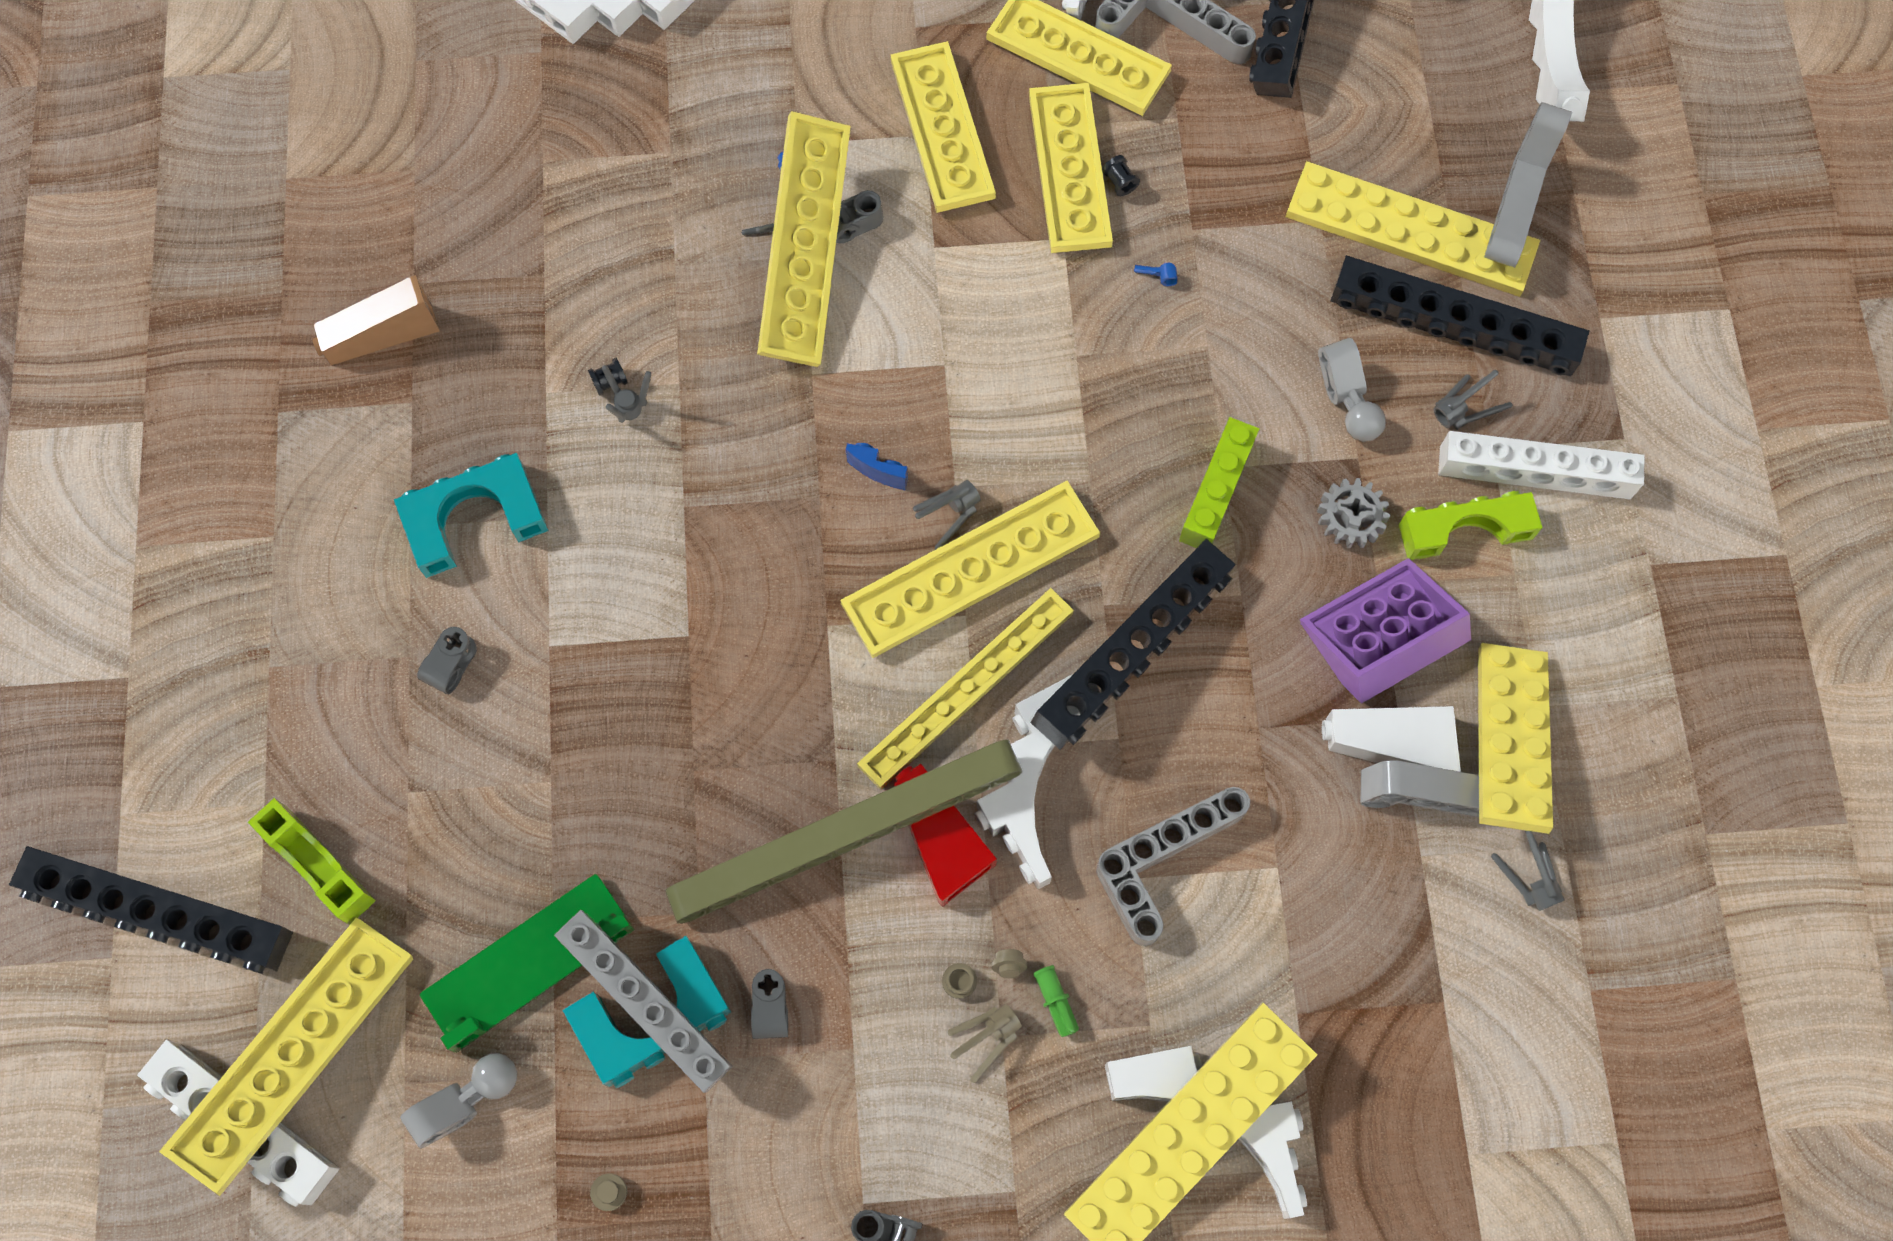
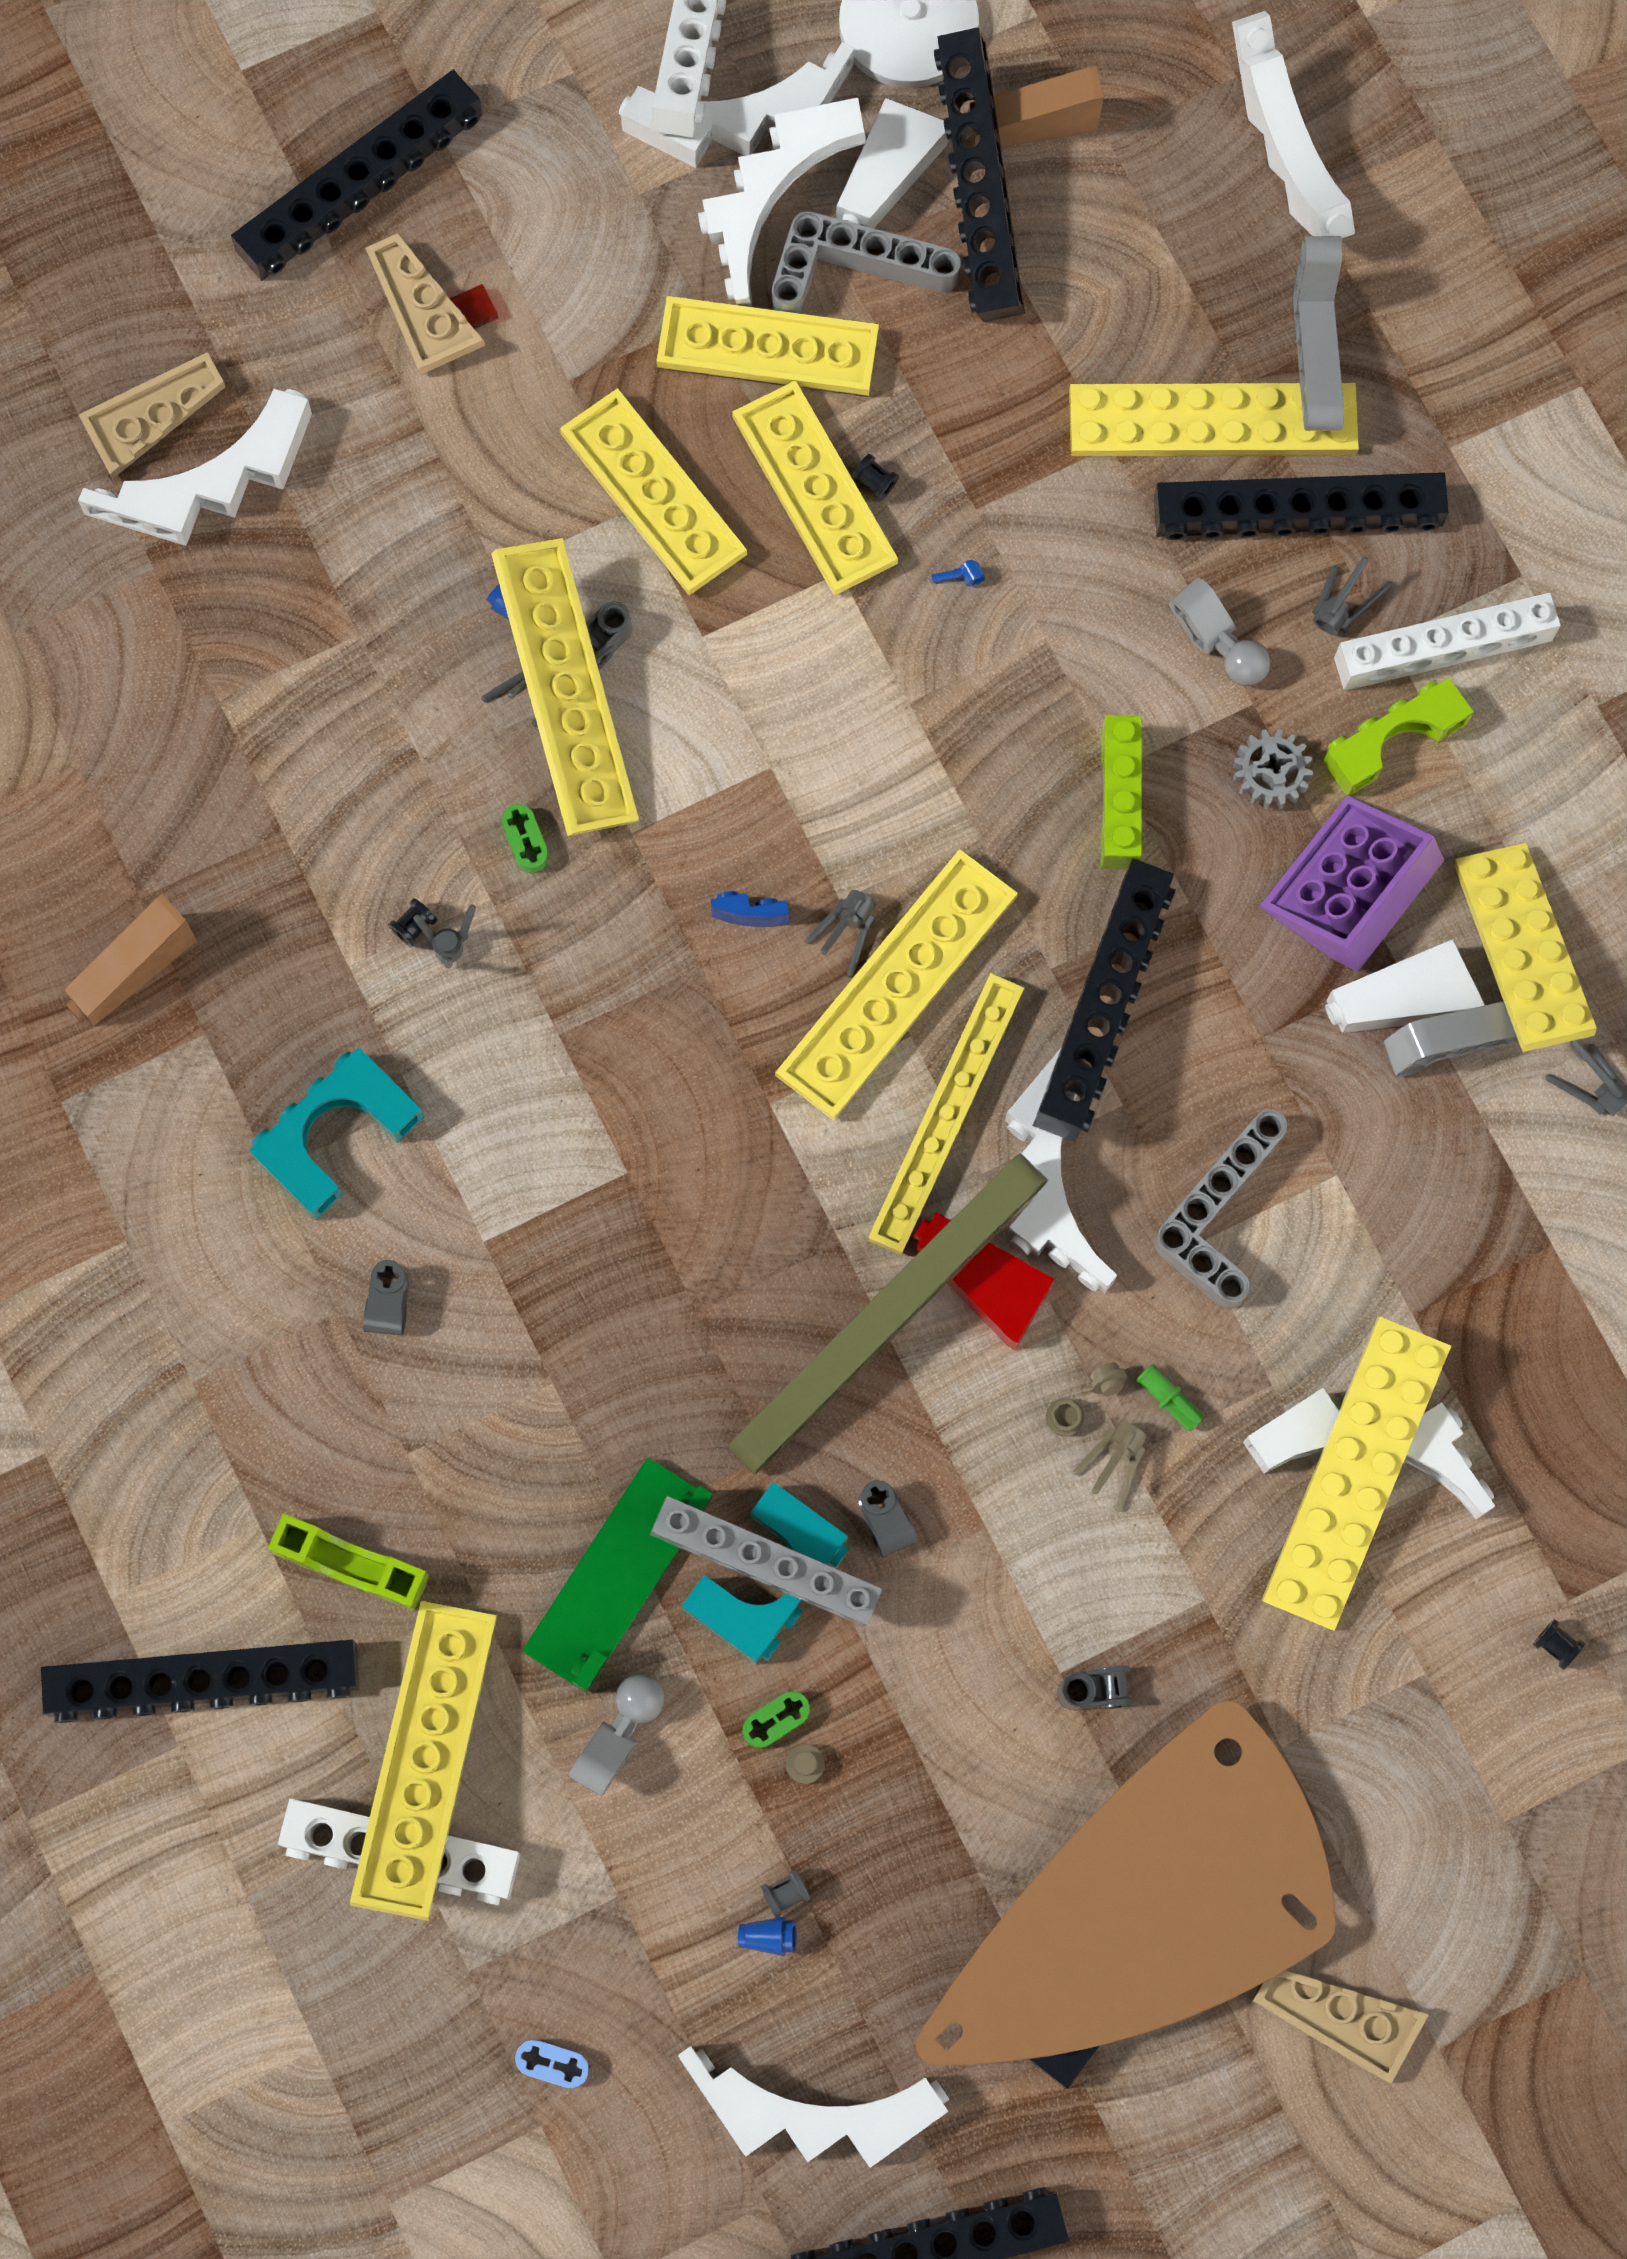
camera: 25 degrees left, 5 degrees up
(599, 1134) = (781, 1727): none -> bright green beam
(718, 346) = (532, 835): none -> bright green beam

